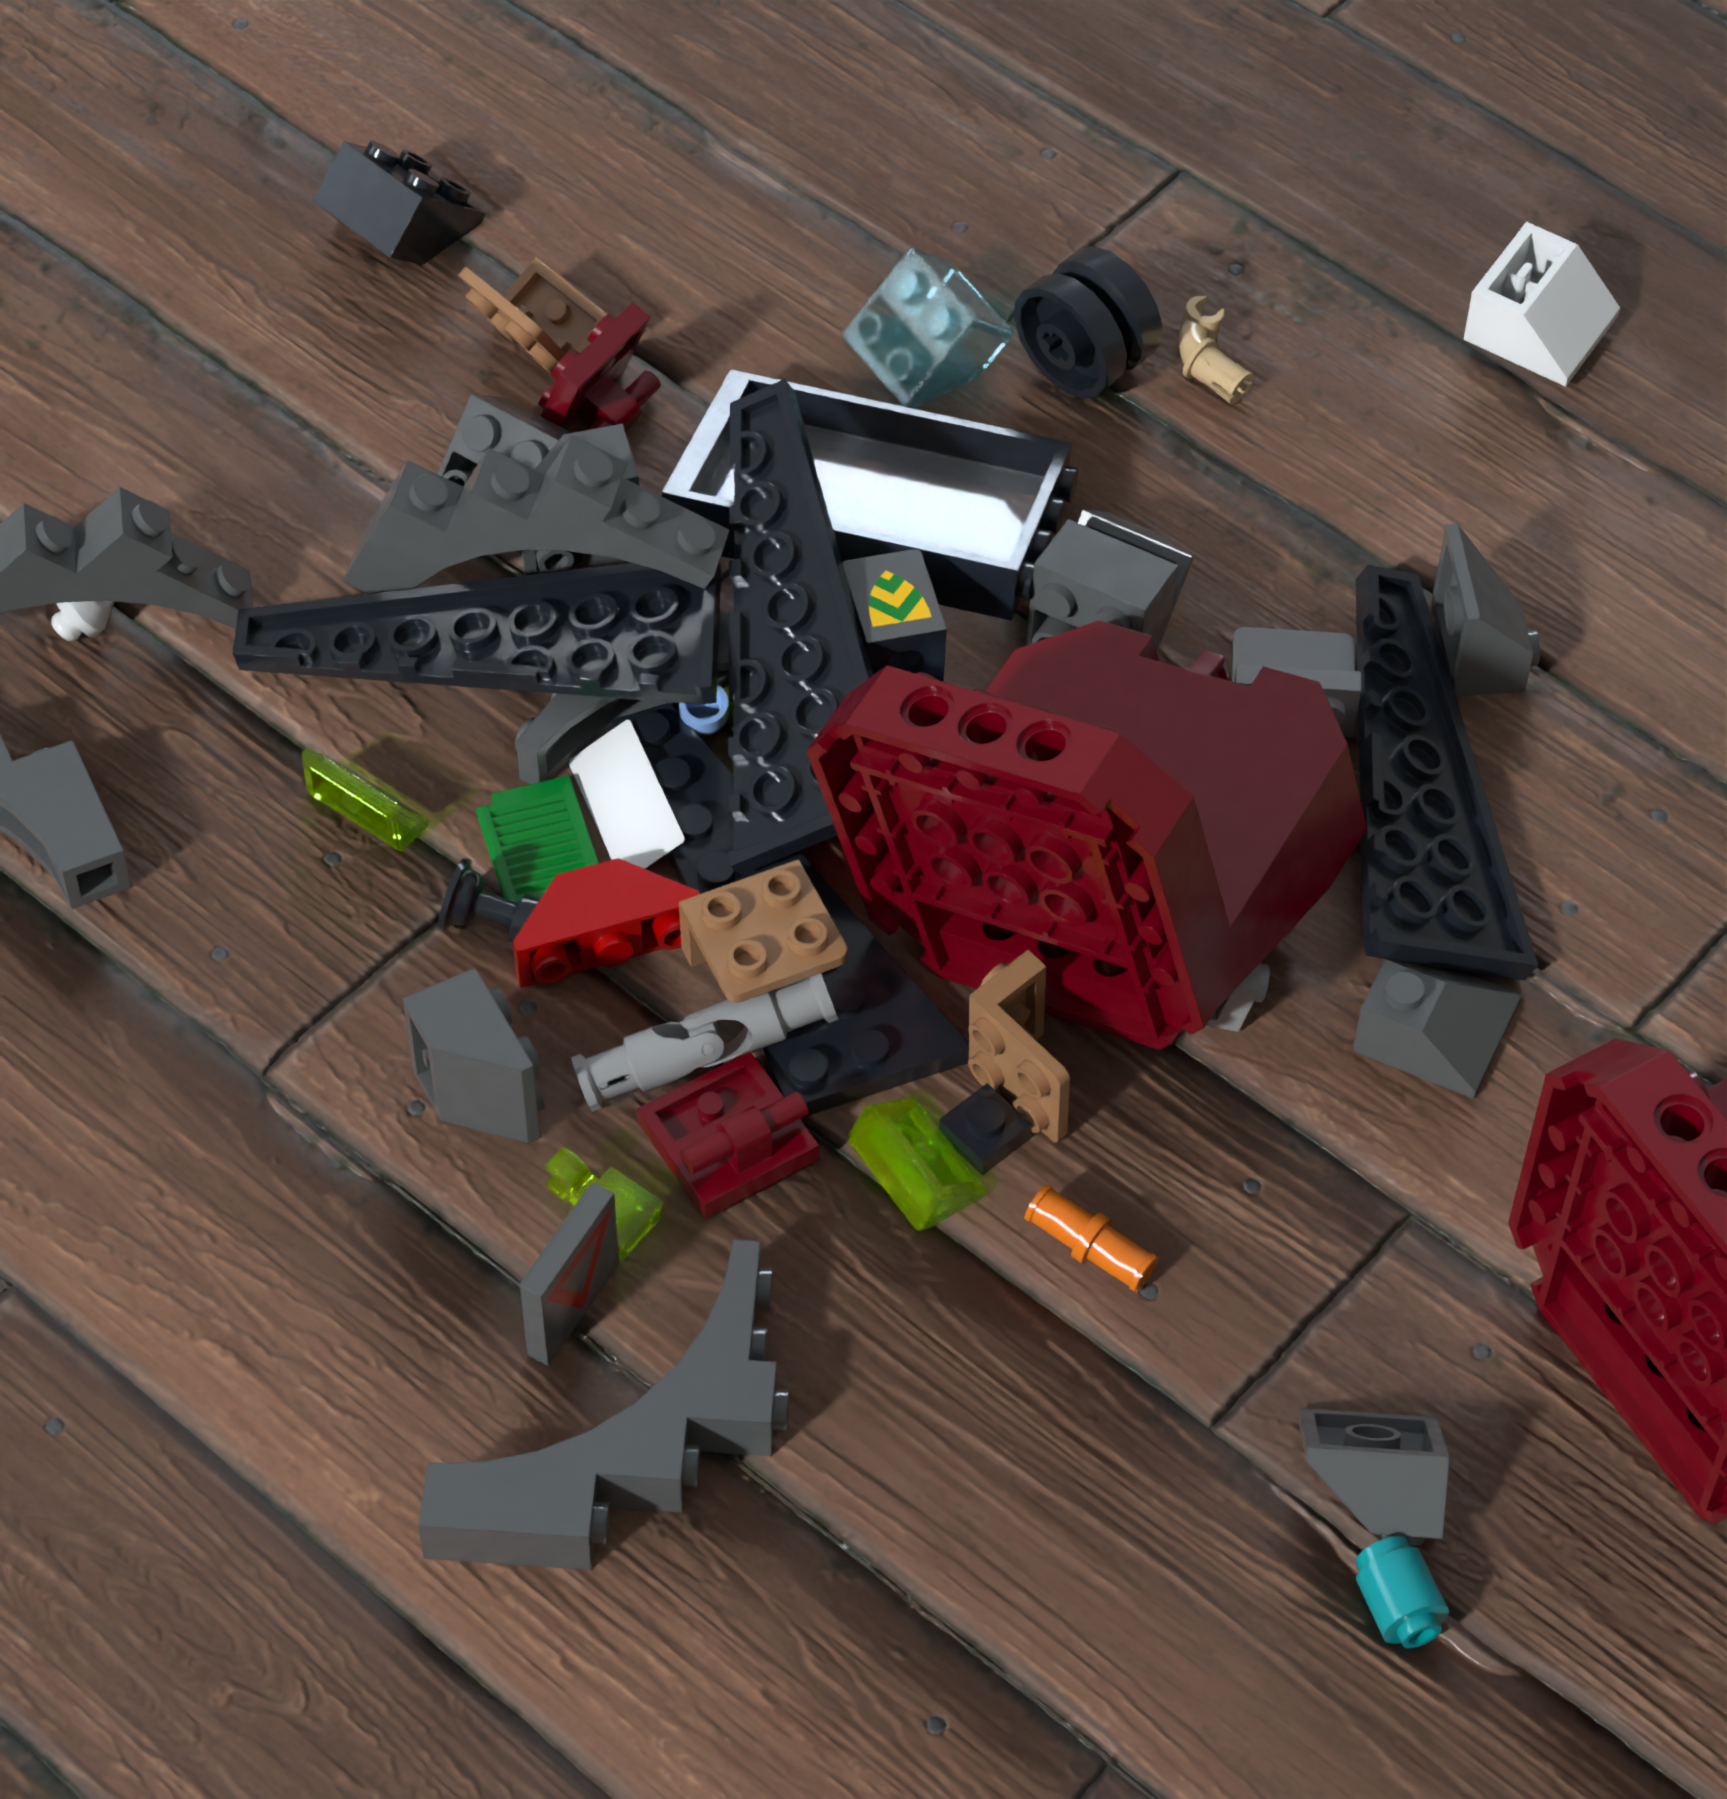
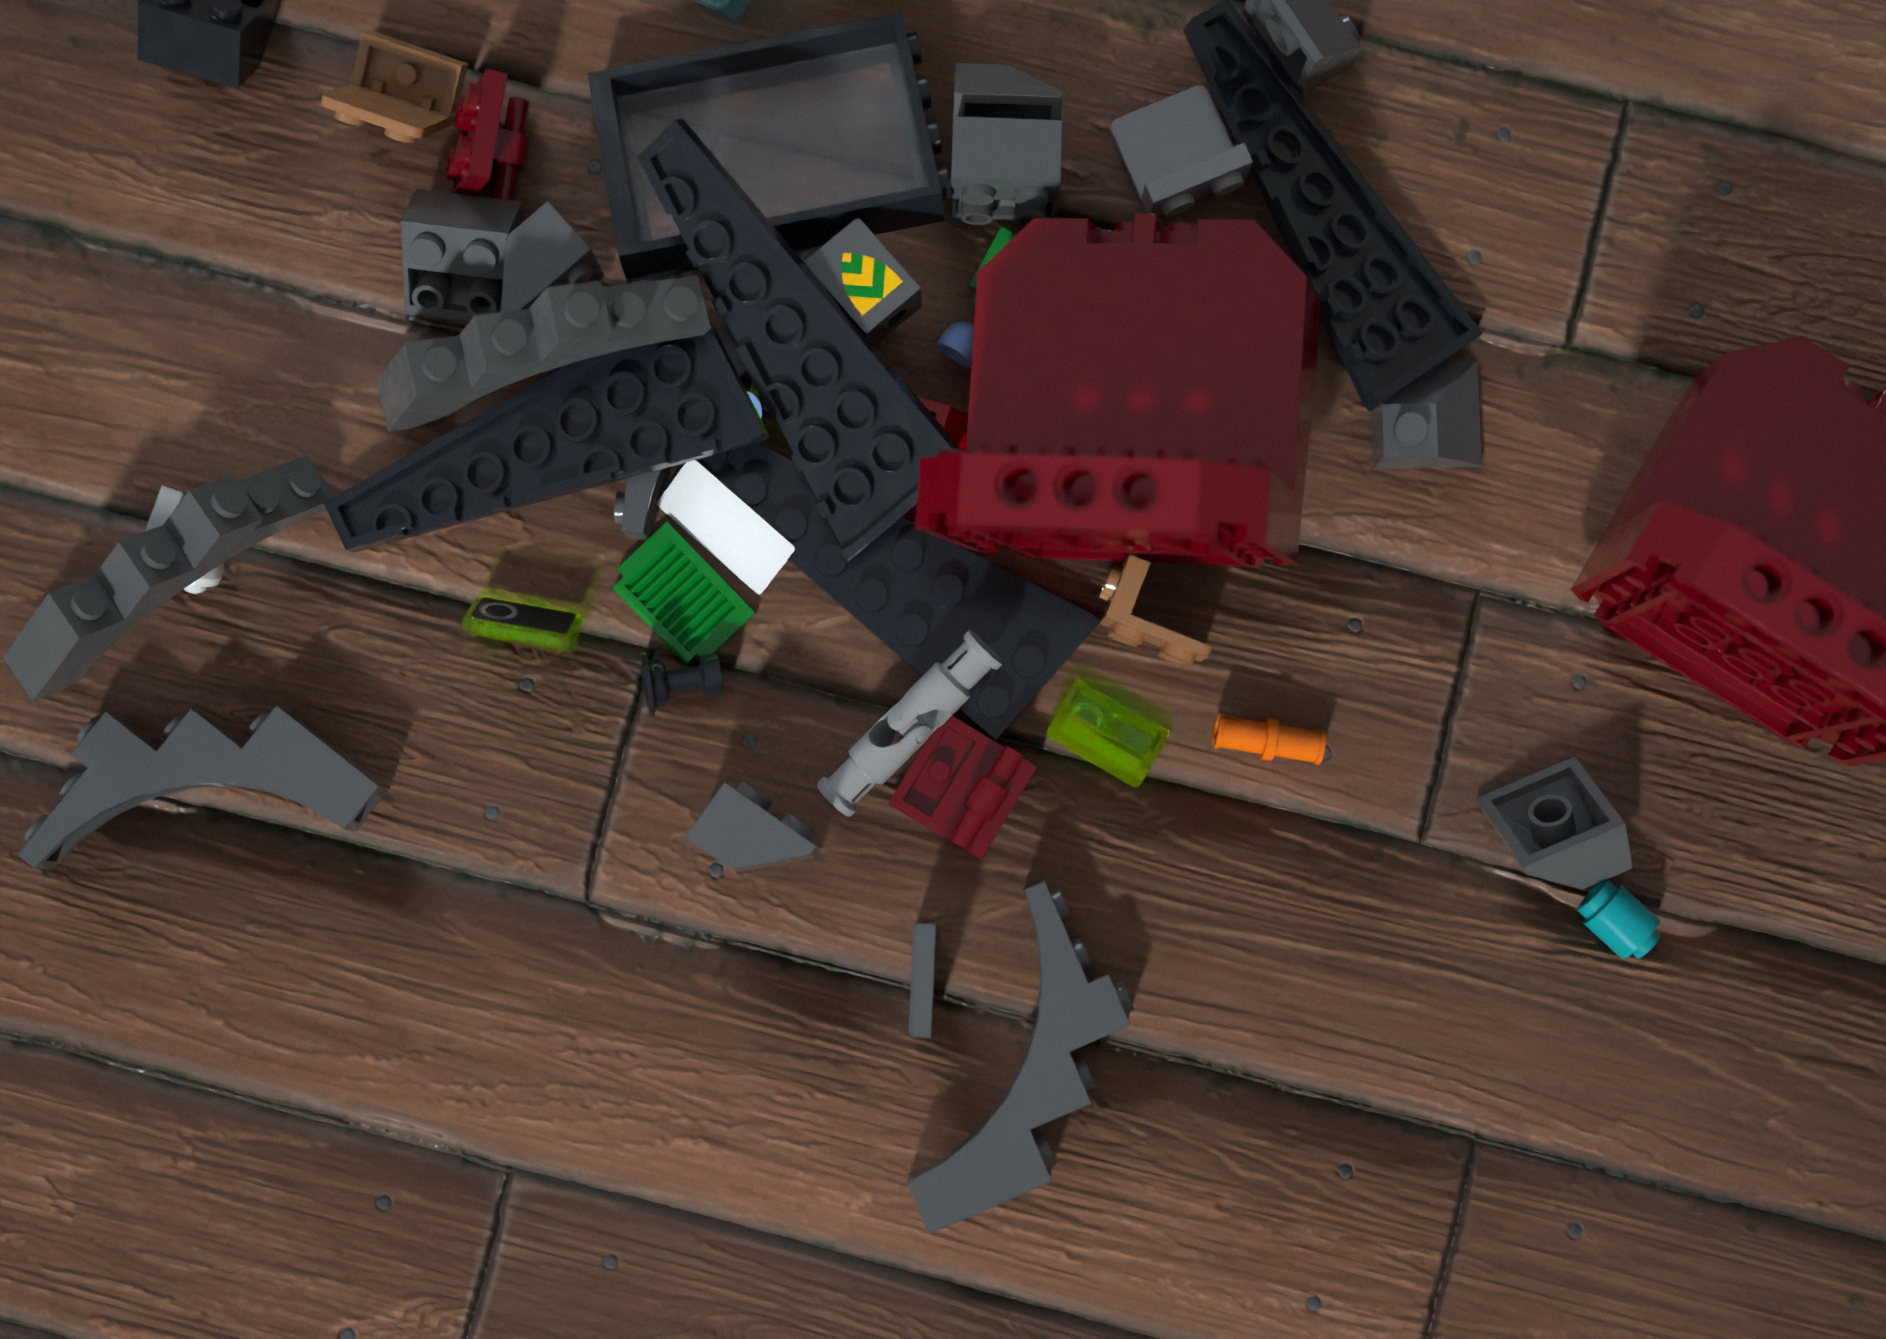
camera: 25 degrees left, 30 degrees up
(598, 920) = (770, 648): red slope -> none
(634, 1206) = (909, 889): clear neon green plate -> none
(761, 932) = (916, 629): medium nougat bracket -> none
(985, 1129) = (1143, 680): black plate -> none

